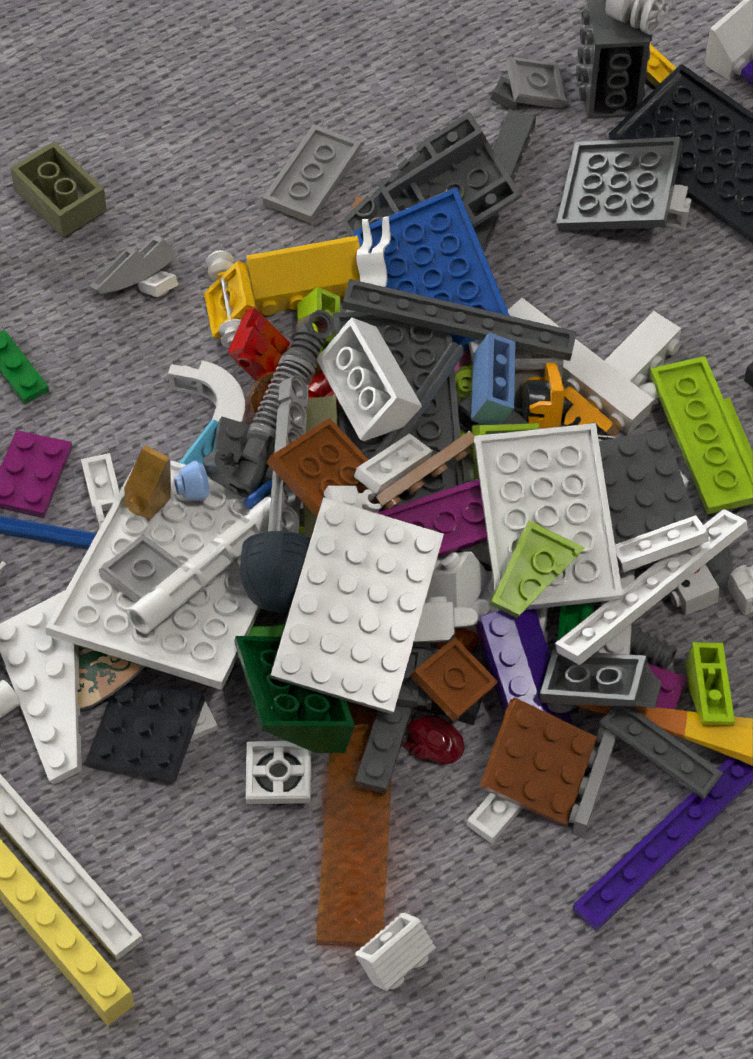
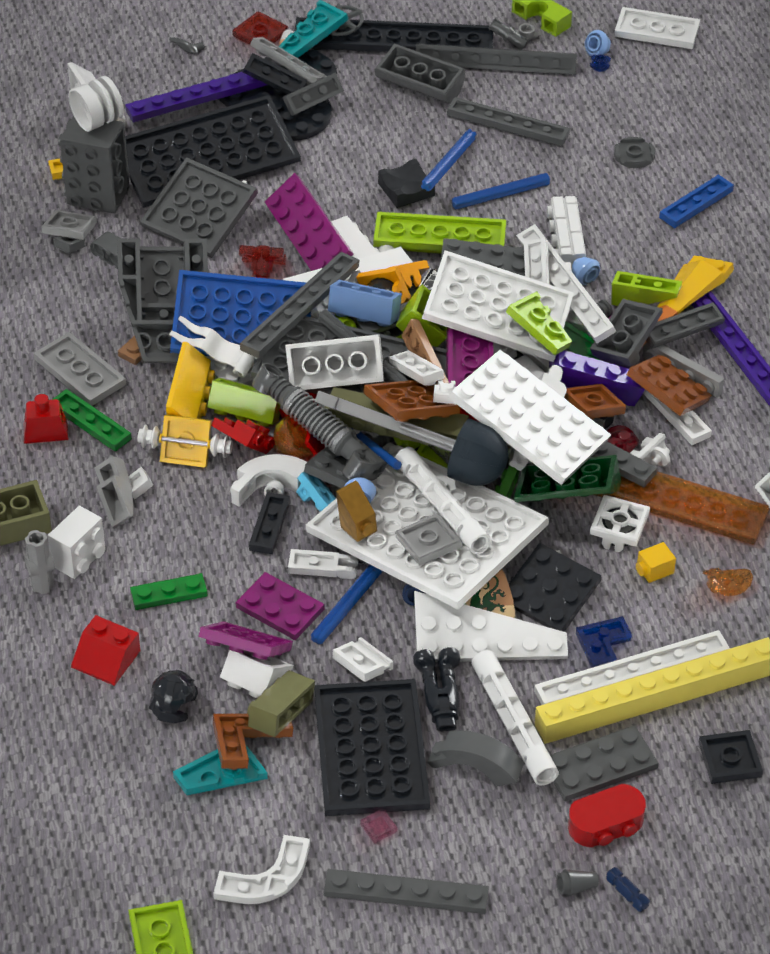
camera: 70 degrees left, 10 degrees down
(35, 257) = (77, 542): none -> white brick
(83, 803) = (600, 636): none -> clear blue plate
(147, 422) = (269, 523): none -> black plate
(198, 410) = (274, 484): none -> white hinge
(206, 160) = (44, 421): none -> red torso
(232, 834) = (655, 562): none -> yellow brick
(233, 924) = (728, 581): none -> clear orange hat
(238, 209) = (93, 421): none -> green plate
(420, 780) = (654, 451): none -> white hips
(564, 272) = (262, 259): none -> clear red plant
(646, 298) = (306, 223): none -> magenta plate
(727, 613) = (585, 269): none -> light blue cone

